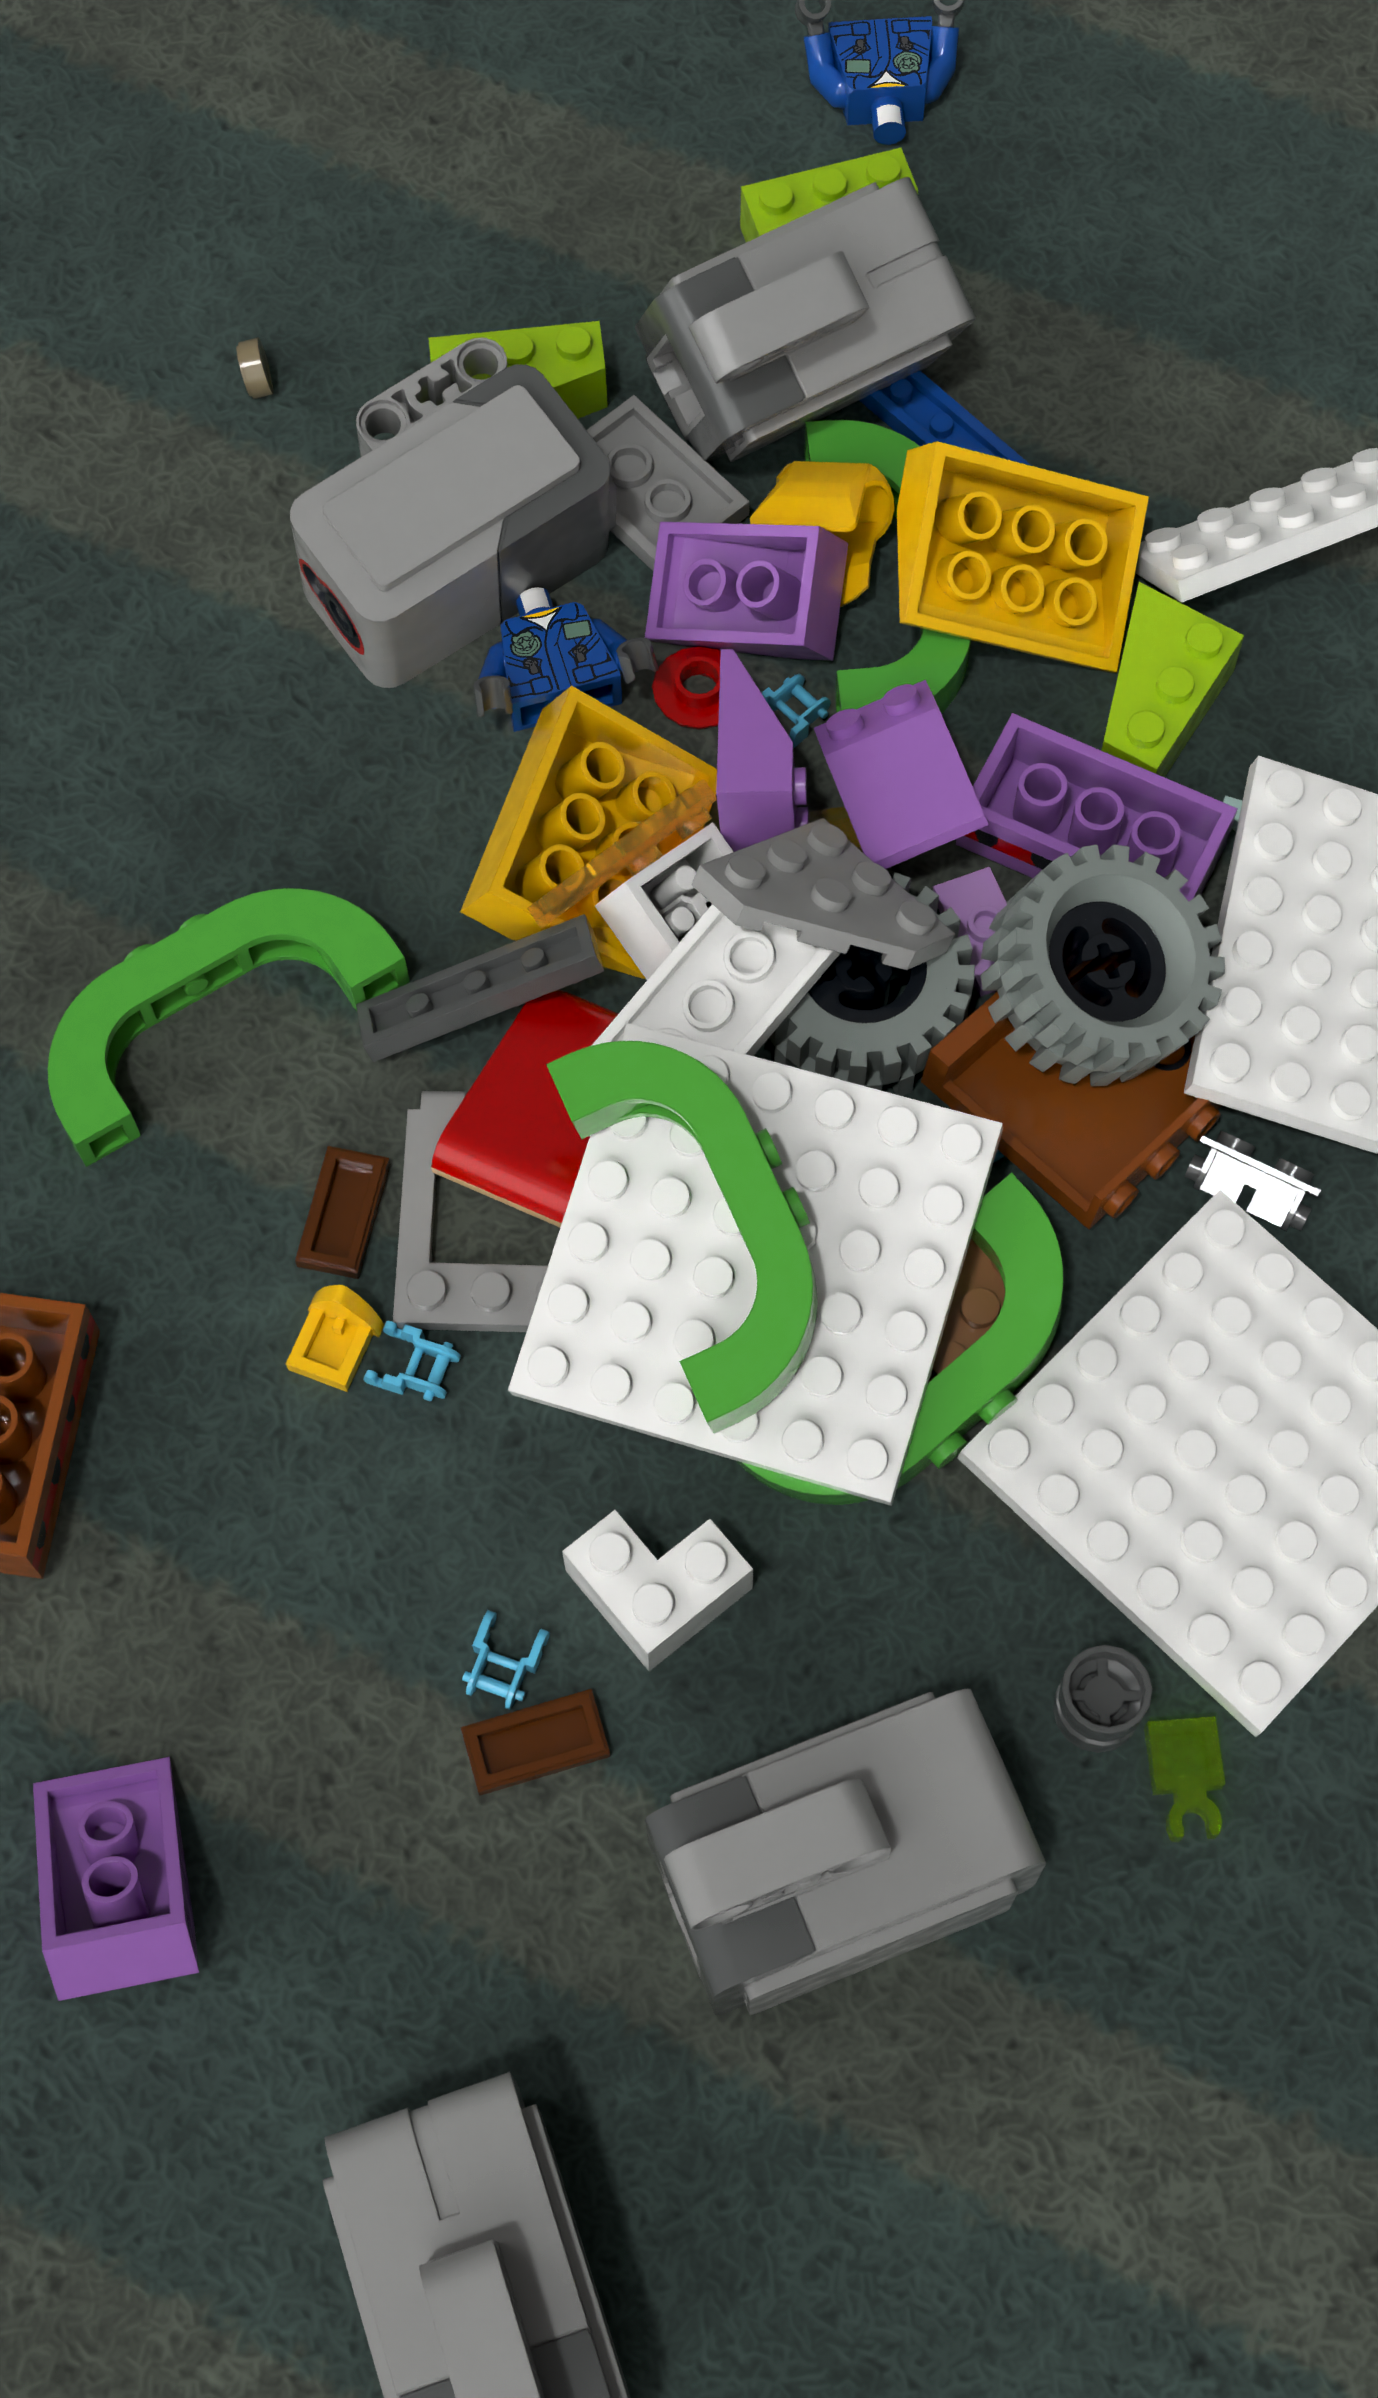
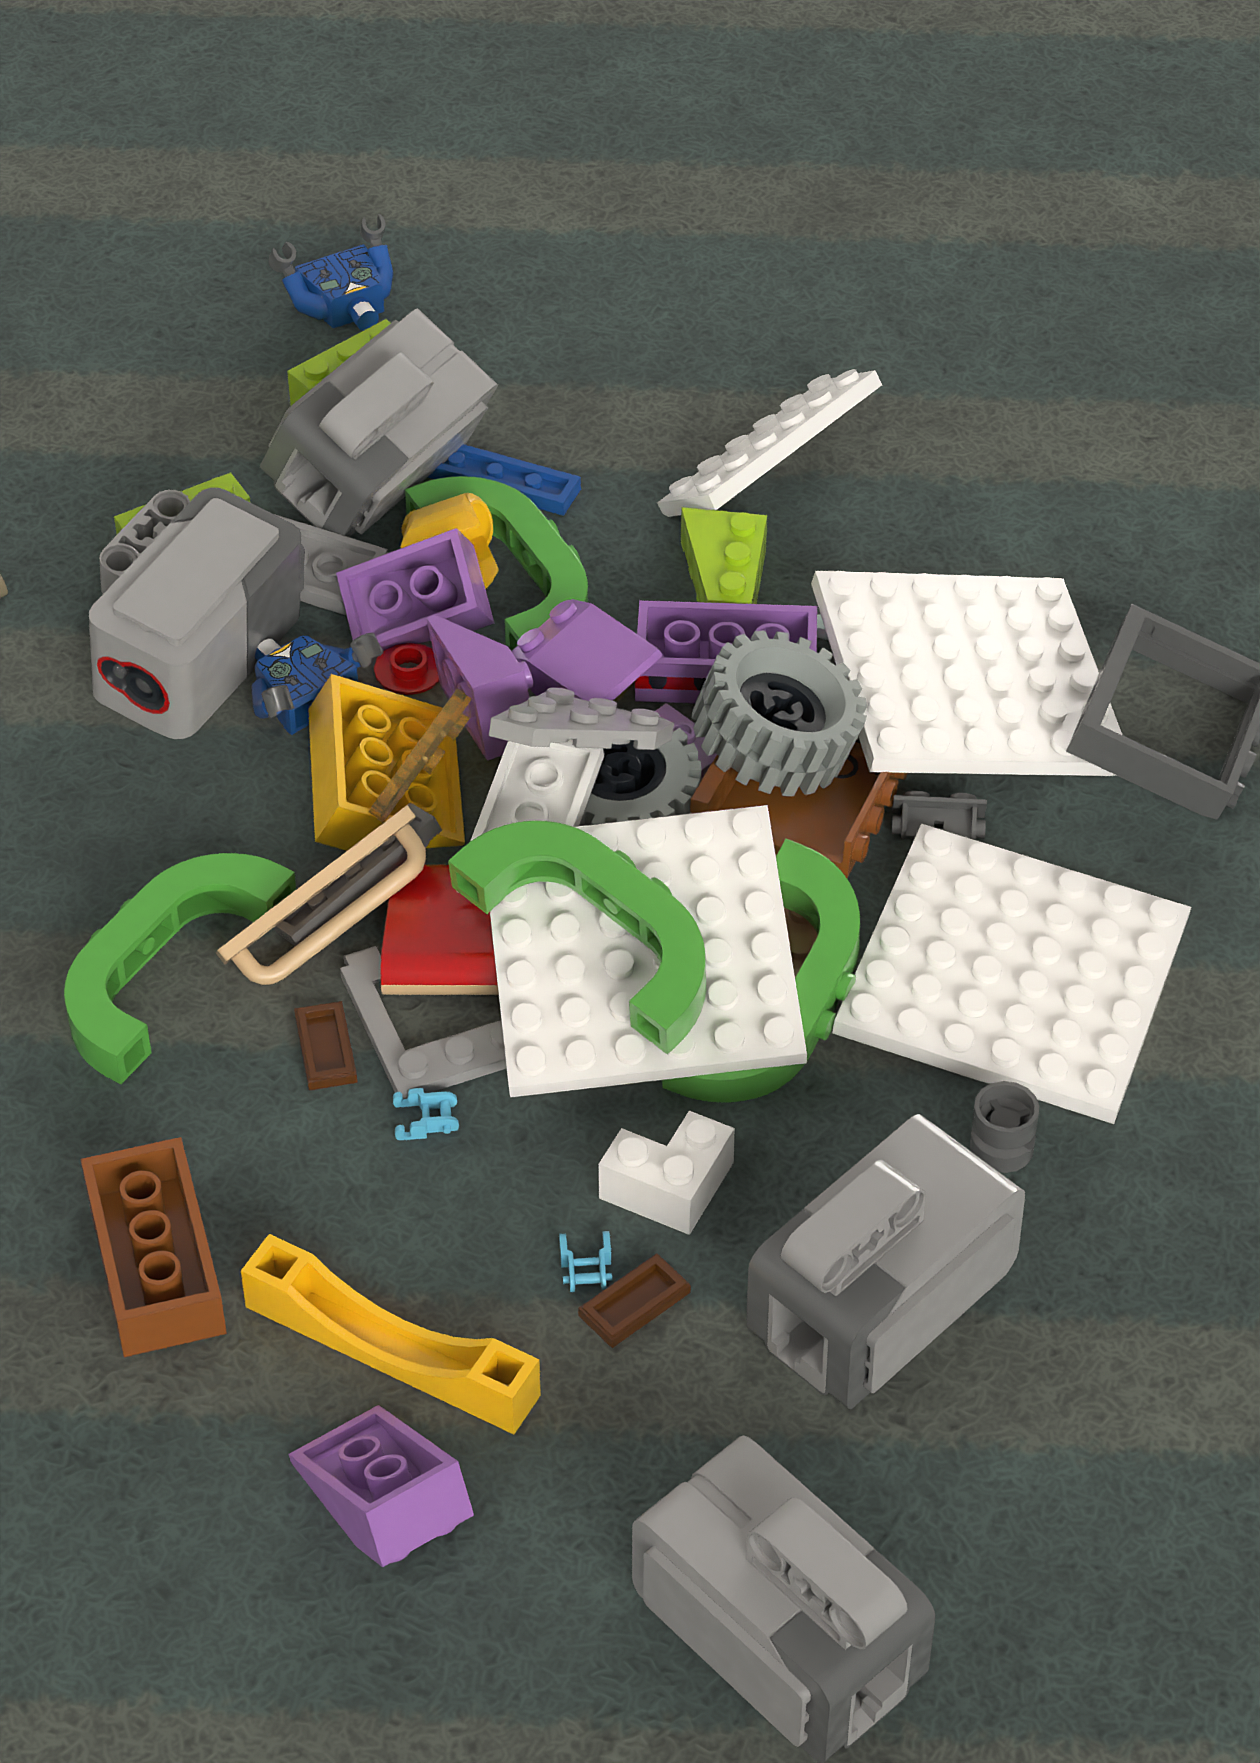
camera: 25 degrees left, 20 degrees down
(214, 1680) = (464, 1372): none -> yellow arch
(334, 1337) = (360, 1113): yellow tile -> none
(536, 954) = (396, 826): none -> tan piece
(659, 903) = (462, 779): white brick -> none
(1016, 555) = (591, 513): yellow slope -> none
(1186, 1763) = (1080, 1149): clear neon green plate -> none

